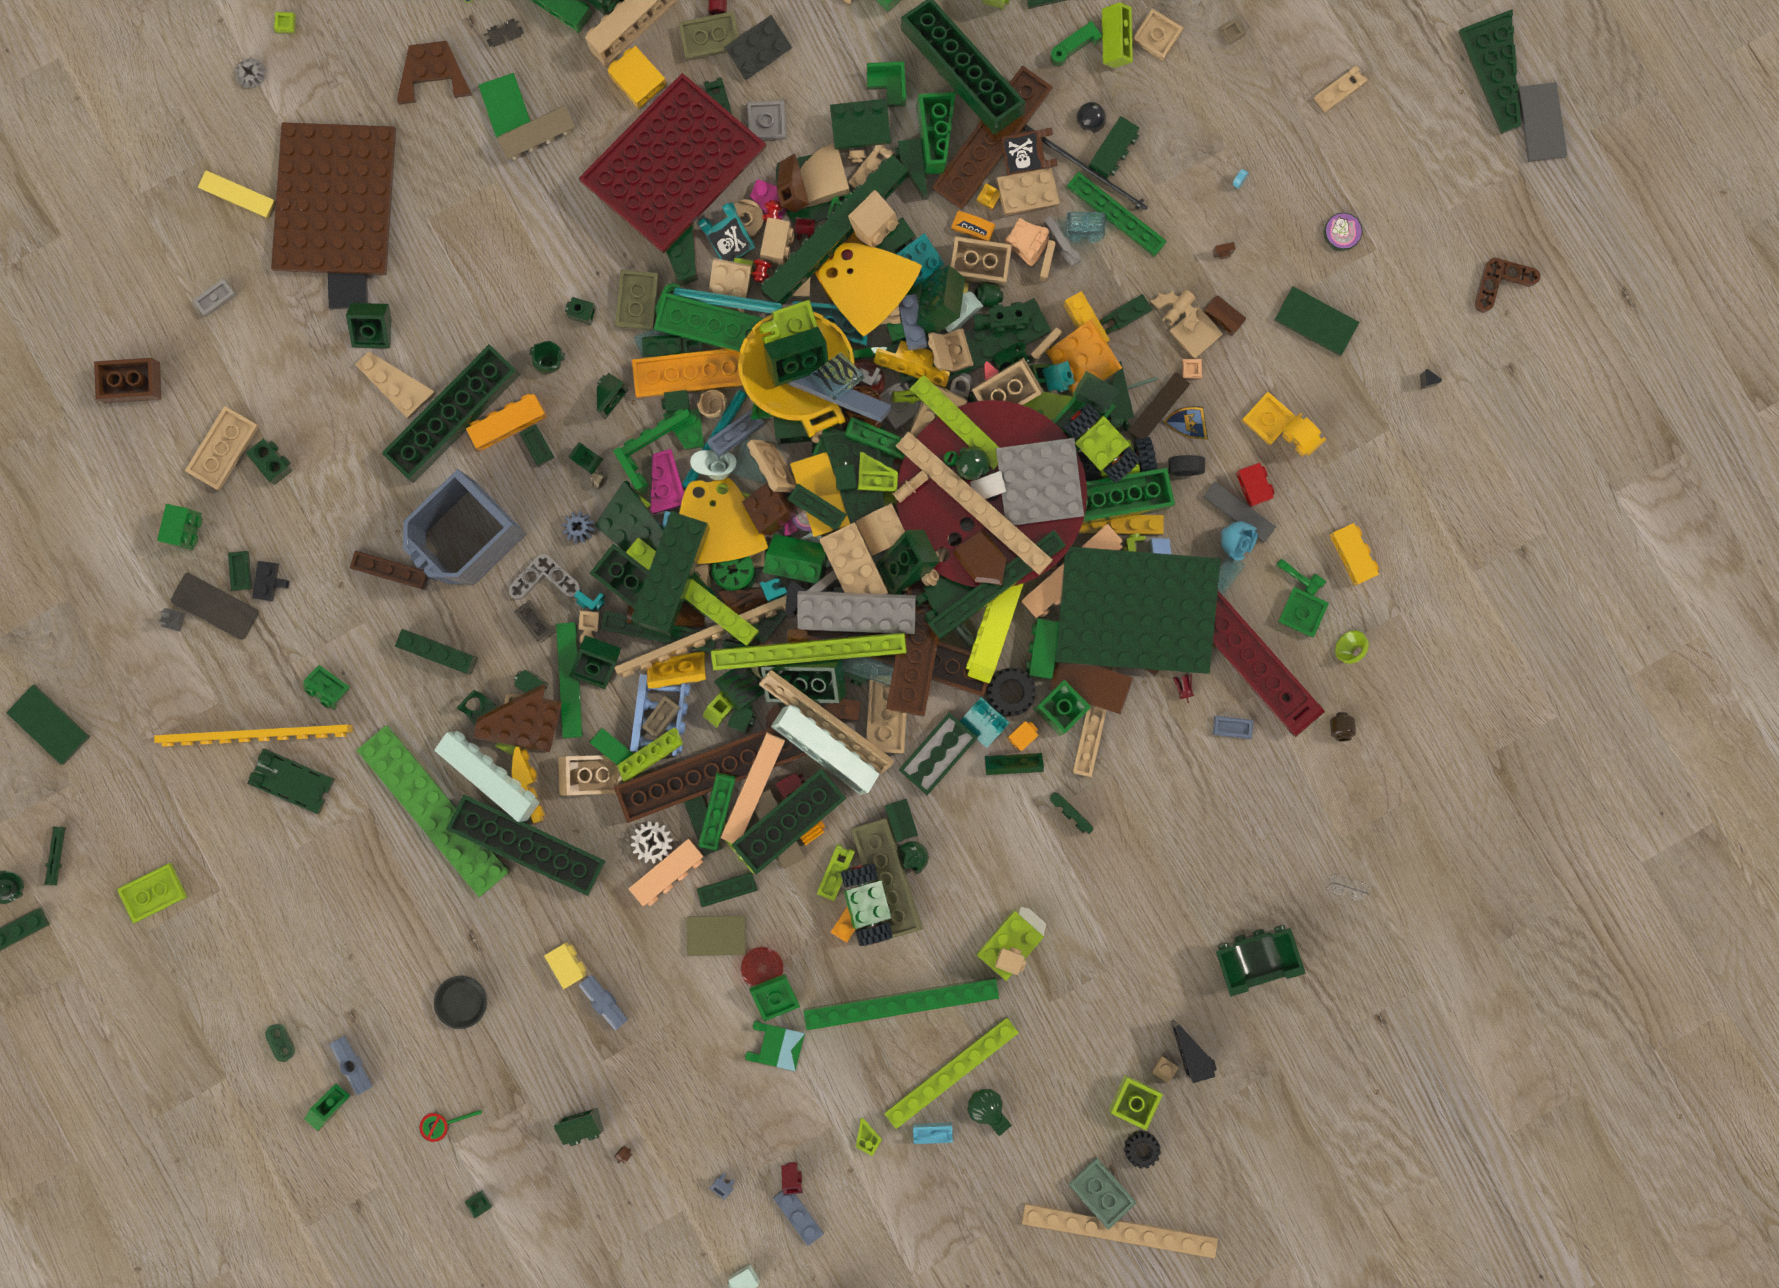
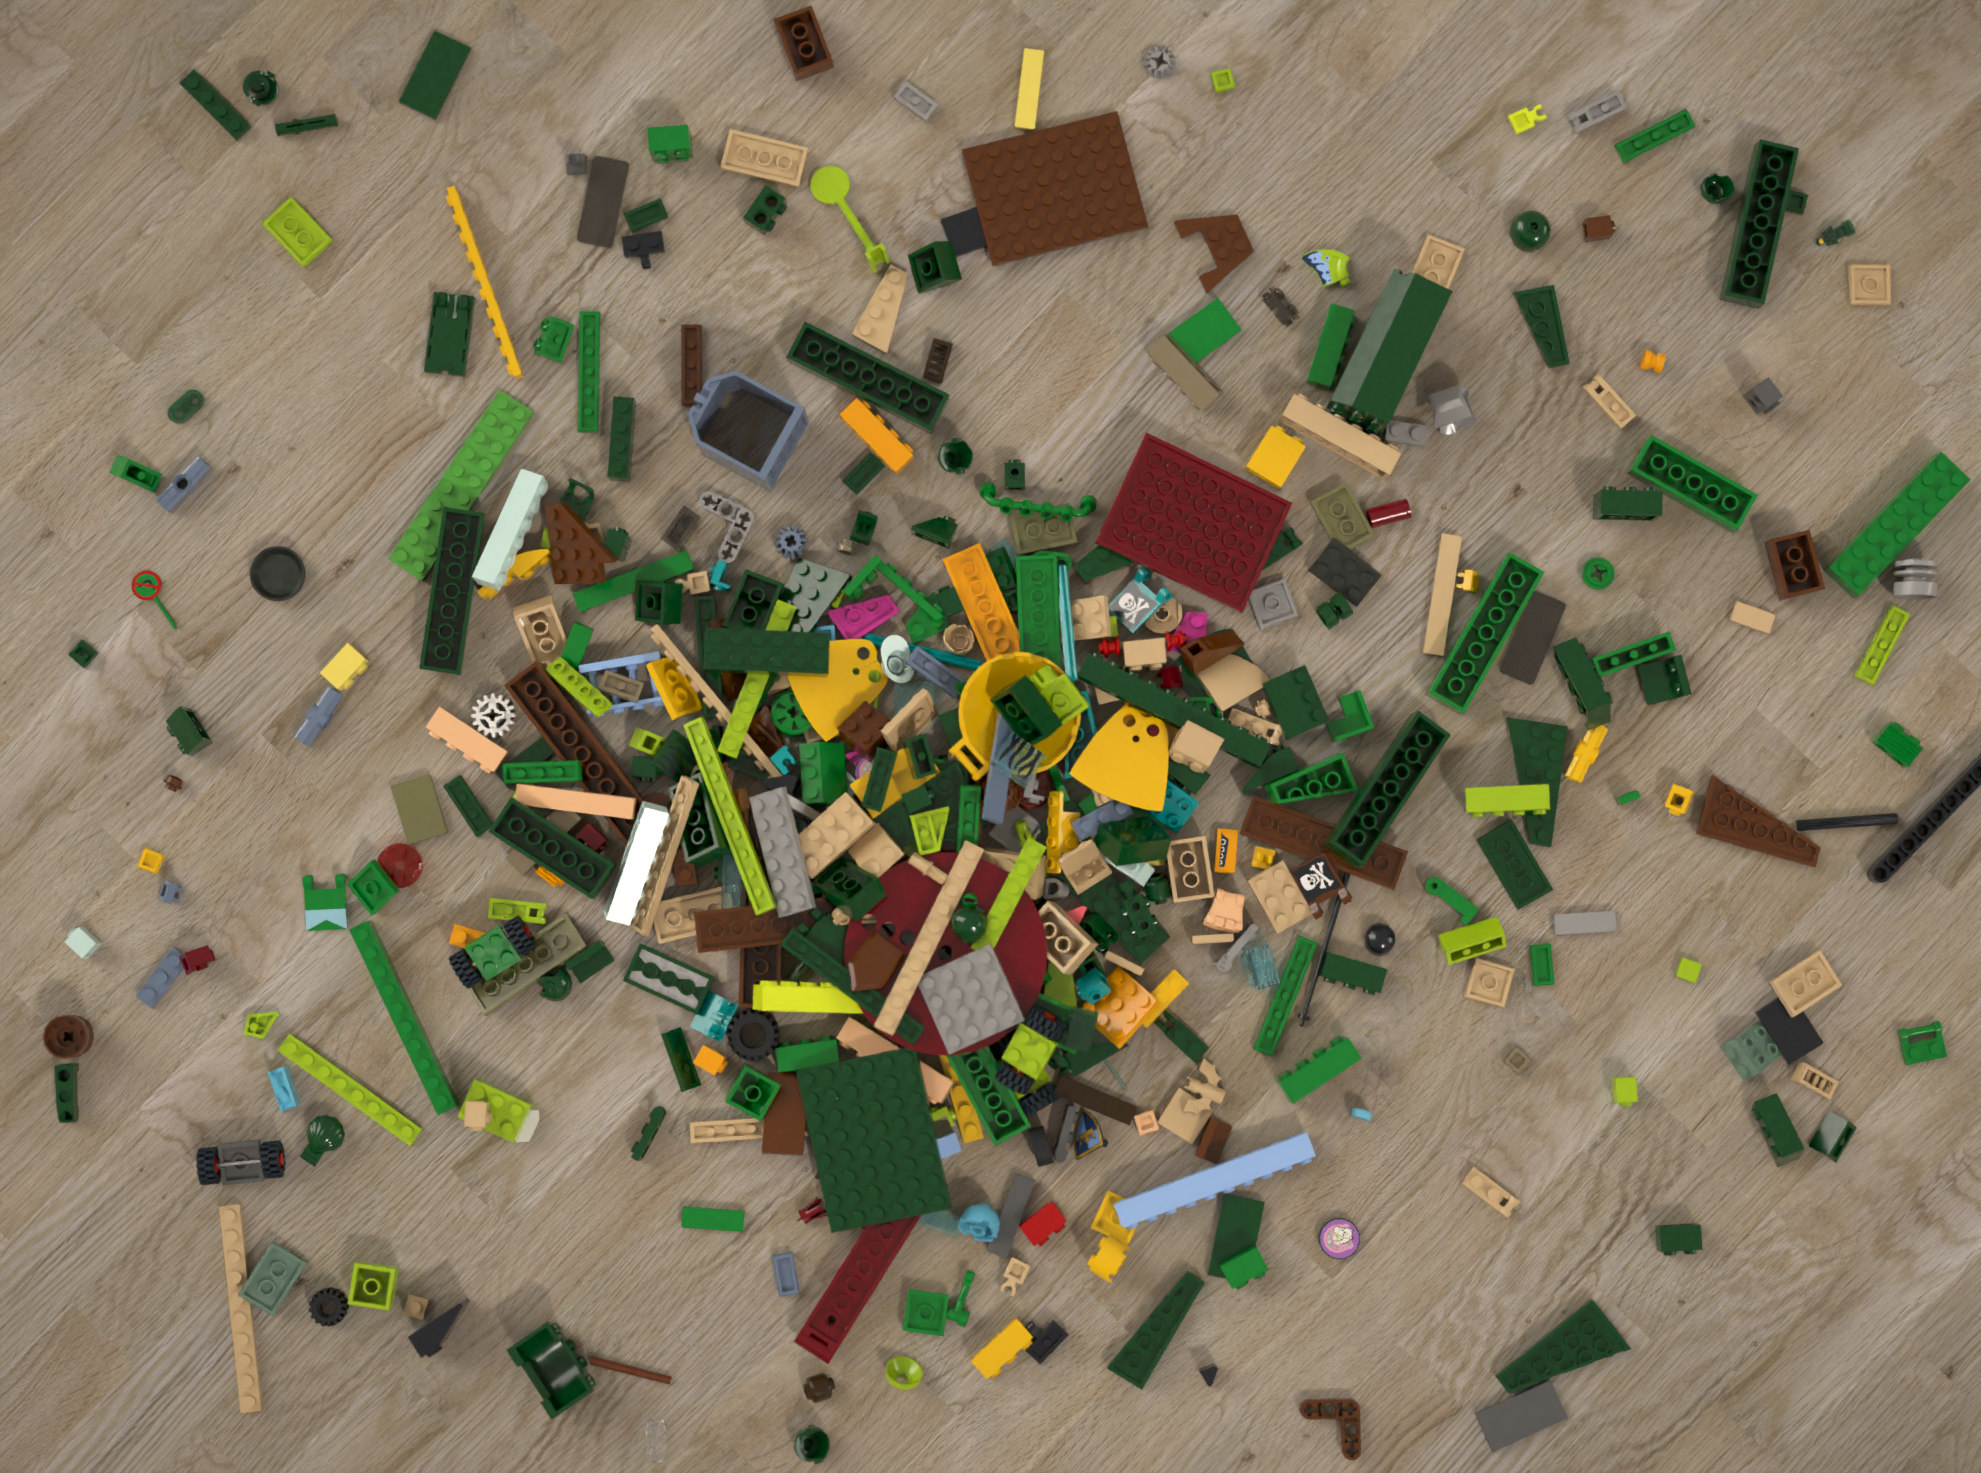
camera: 70 degrees right, 0 degrees up
(267, 395) = (831, 187): none -> lime piece
(366, 664) = (589, 372): none -> green tile
(442, 338) = (943, 343): none -> dark brown slope
(627, 254) = (1026, 507): none -> green bar
(688, 1196) = (151, 860): none -> yellow tile
(789, 67) = (1328, 615): none -> dark green wheel
(807, 463) = (919, 756): none -> dark green brick
(988, 1192) = (240, 1162): none -> plate
(989, 485) = (951, 948): white sticker -> none
(1164, 778) = (713, 1219): none -> green tile
(1180, 442) = (1065, 1135): none -> dark grey hinge
(1190, 202) = (1319, 1069): none -> green brick
(1224, 250) = (1279, 1120): reddish brown plate -> none
(1261, 323) = (1214, 1179): none -> light blue brick
(1278, 891) = (630, 1370): none -> copper bar
(1291, 523) = (1015, 1272): none -> tan plate
(1345, 319) = (1244, 1267): none -> green brick
(1358, 513) = (1045, 1341): none -> black plate
(1386, 423) = (1145, 1348): none -> dark green wing
(1392, 747) = (812, 1444): none -> dark green cap

